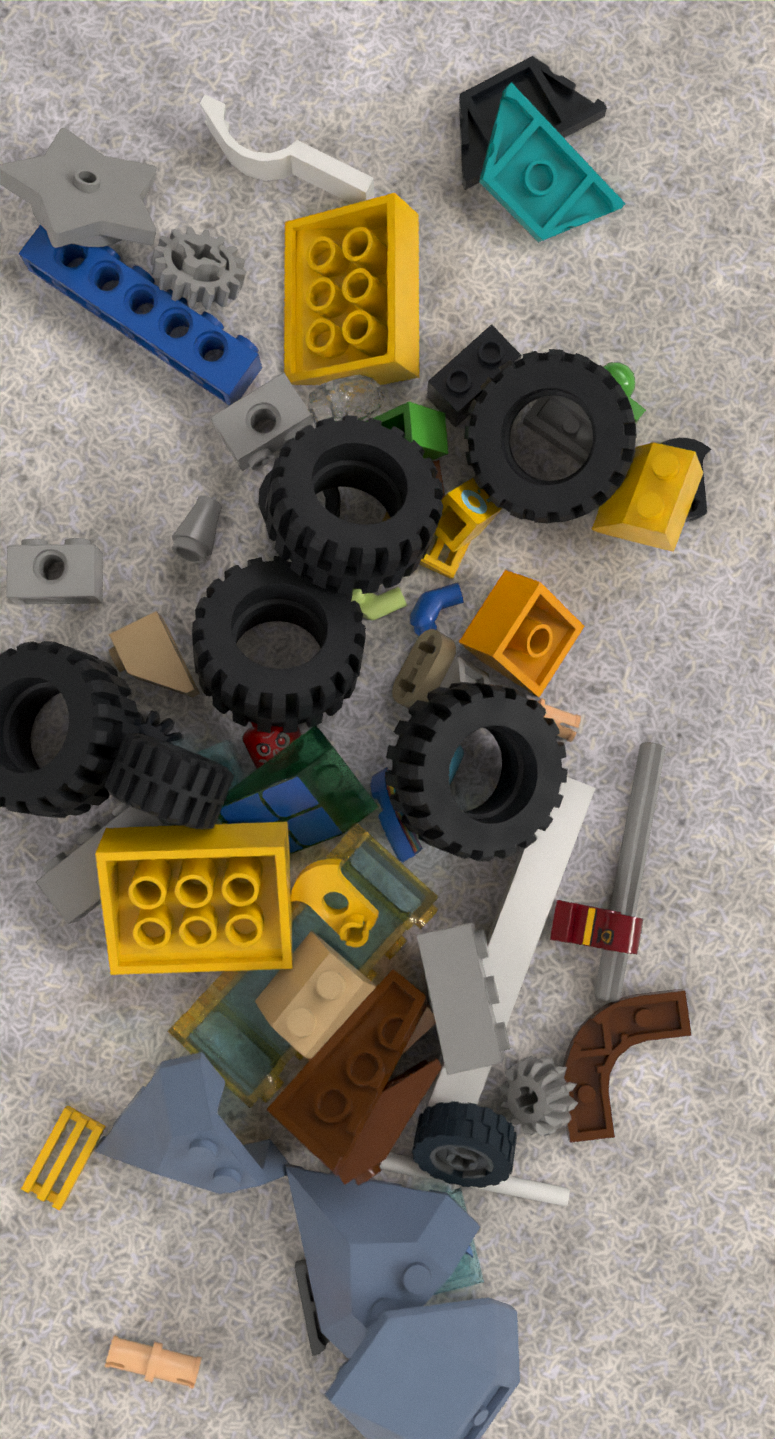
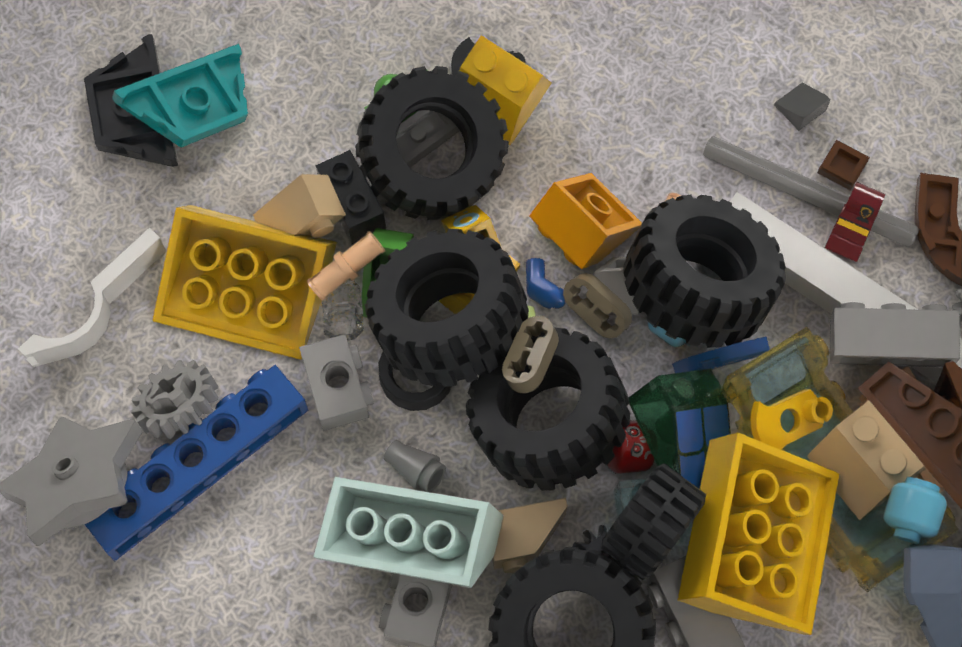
camera: 75 degrees left, 15 degrees down
(107, 539) = (408, 532): none -> light aqua slope
(252, 1056) = (915, 510): none -> medium azure head
(319, 605) = (535, 355): none -> dark tan beam
(377, 388) = (346, 265): none -> light nougat pin
(438, 328) = (303, 207): none -> tan slope
(674, 902) = (843, 165): none -> reddish brown tile
(736, 839) = (802, 105): none -> dark grey slope

